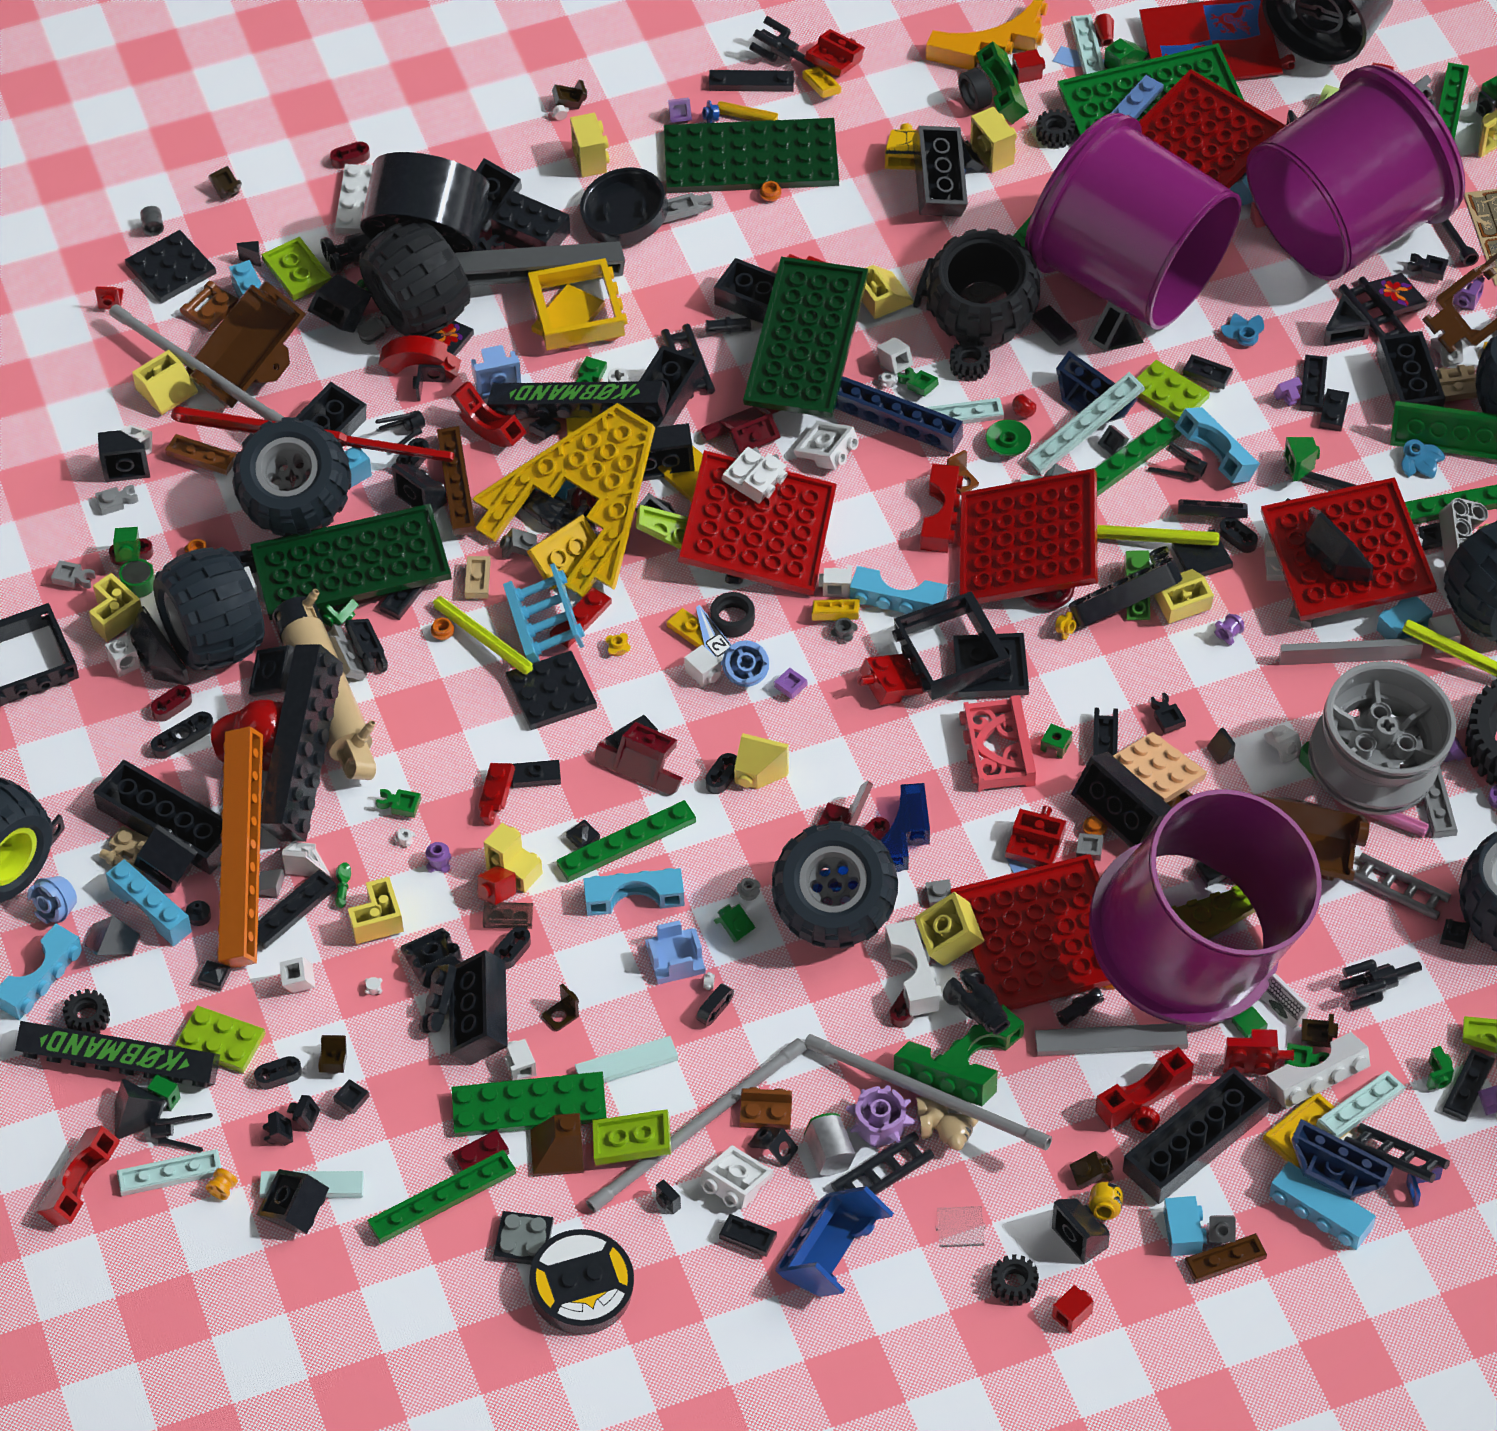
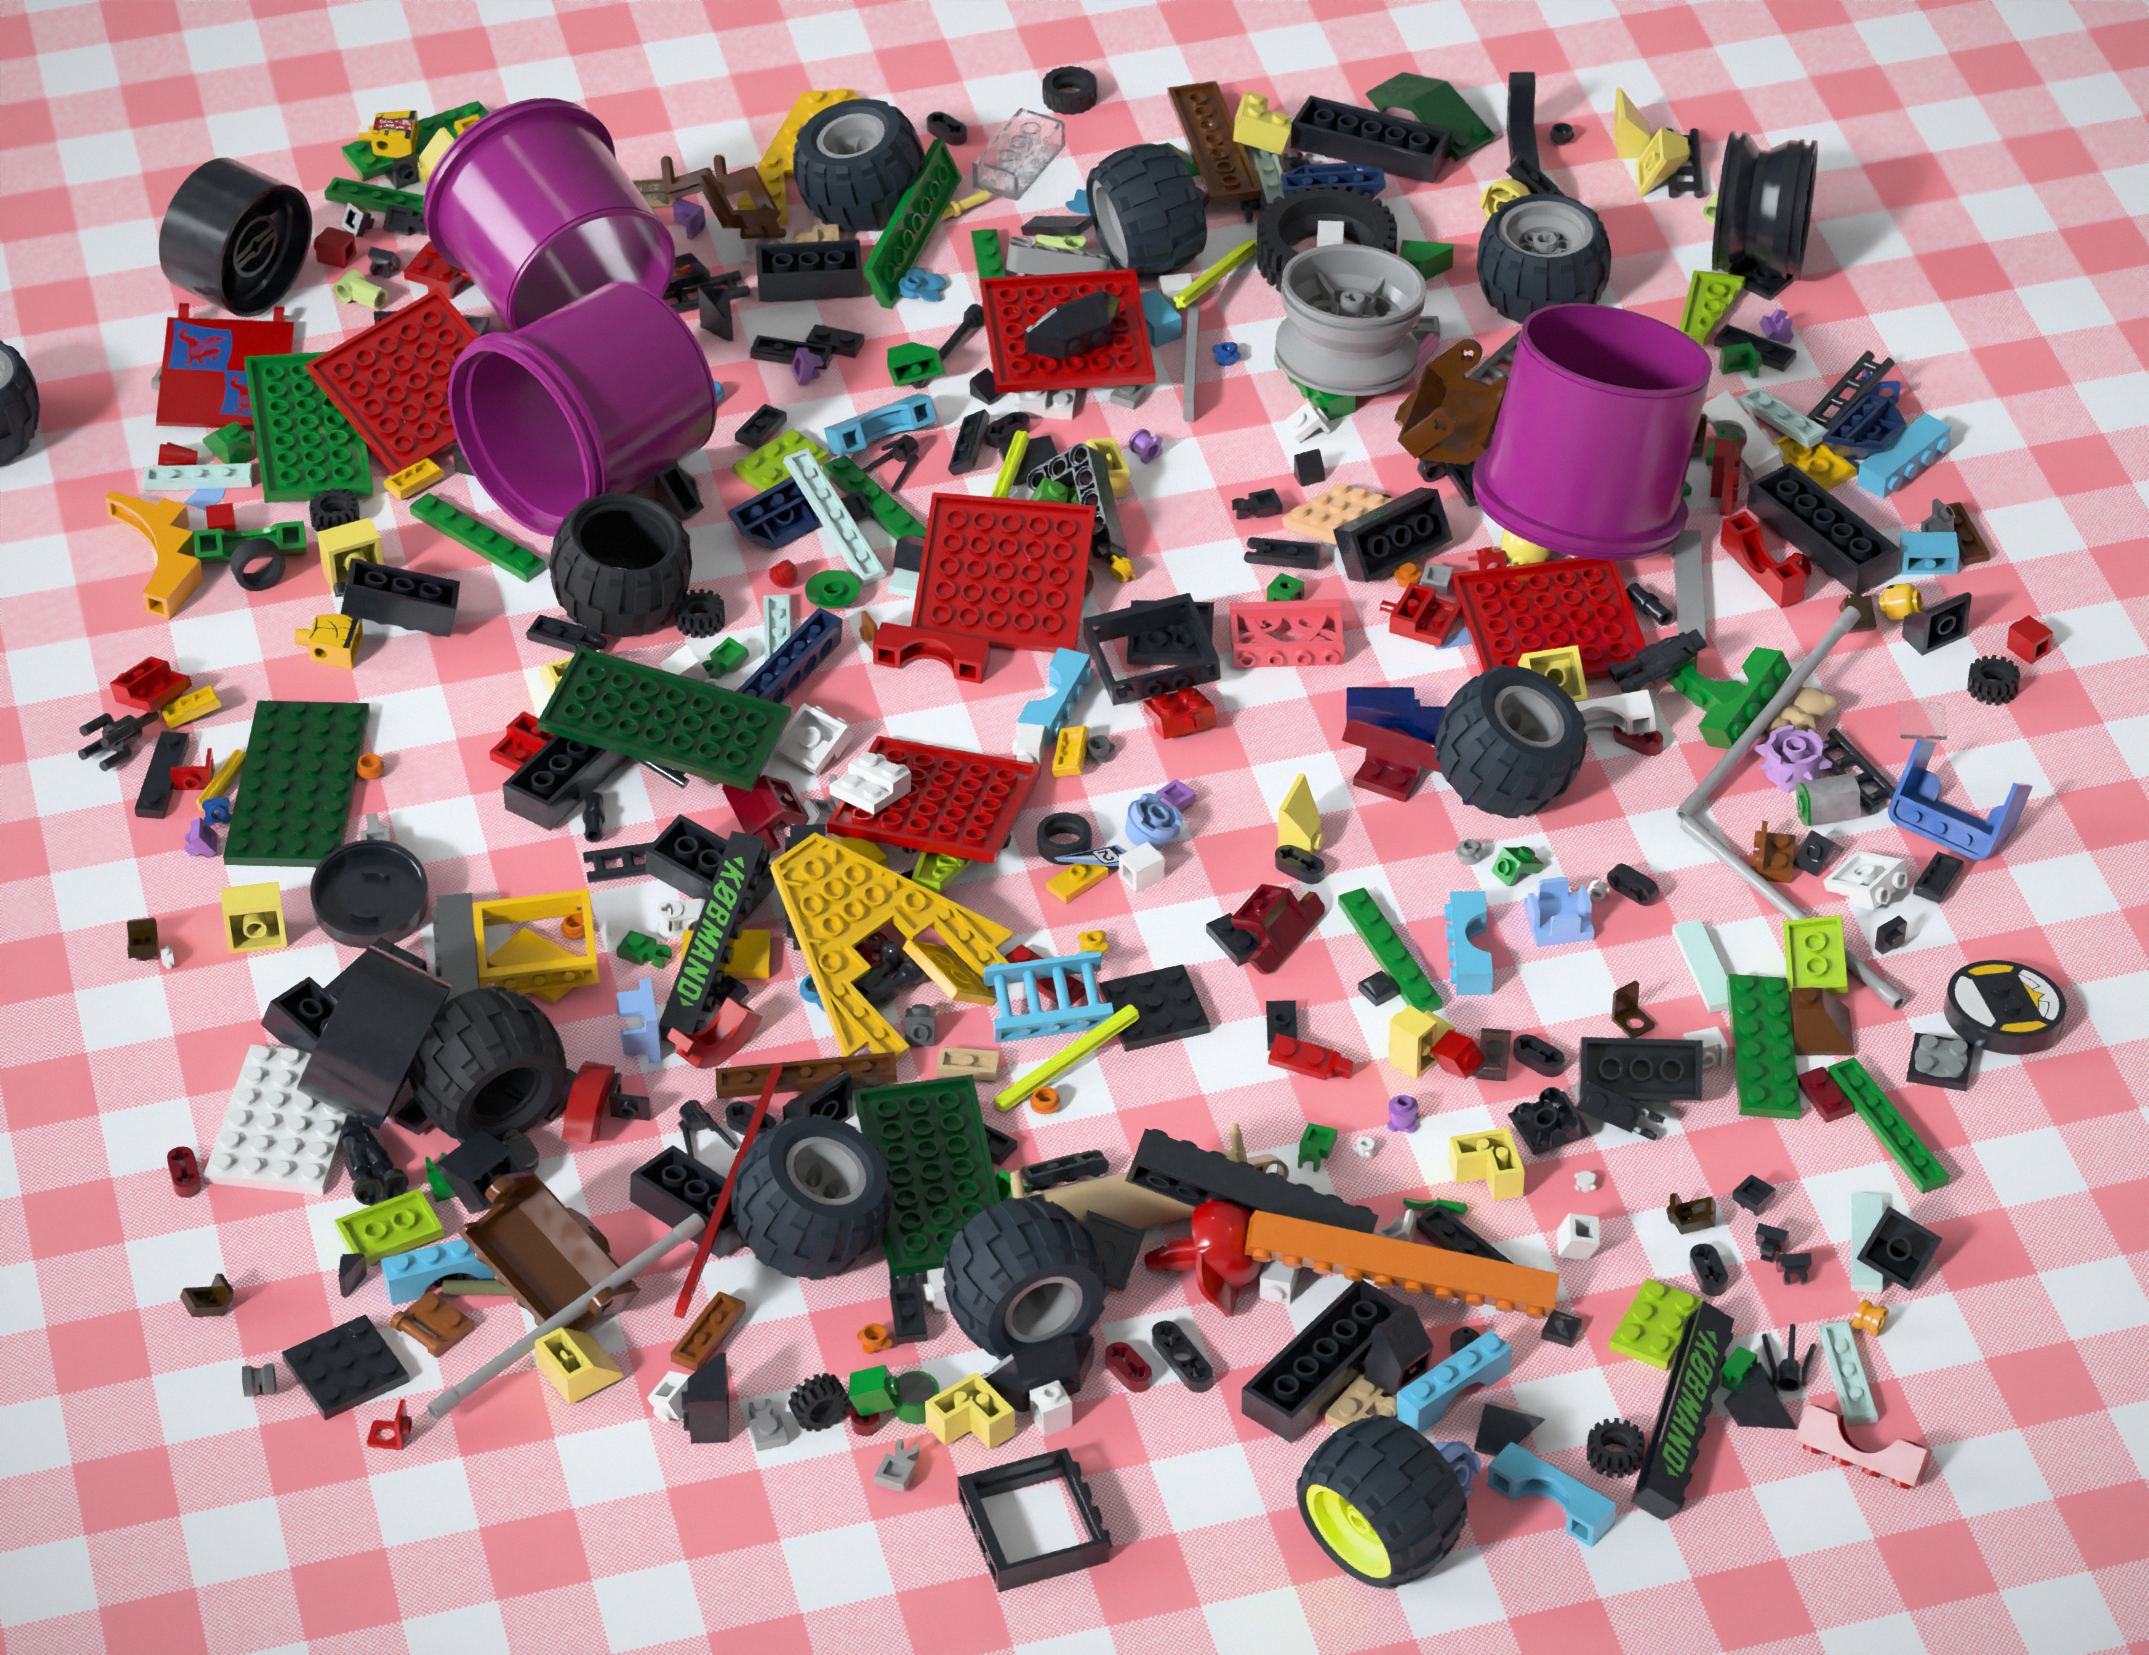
camera: 85 degrees left, 10 degrees down
(121, 514) = (819, 1402): none -> black tyre
(747, 98) = (194, 776): none -> red bracket
(1140, 97) = (331, 439): medium blue plate -> none

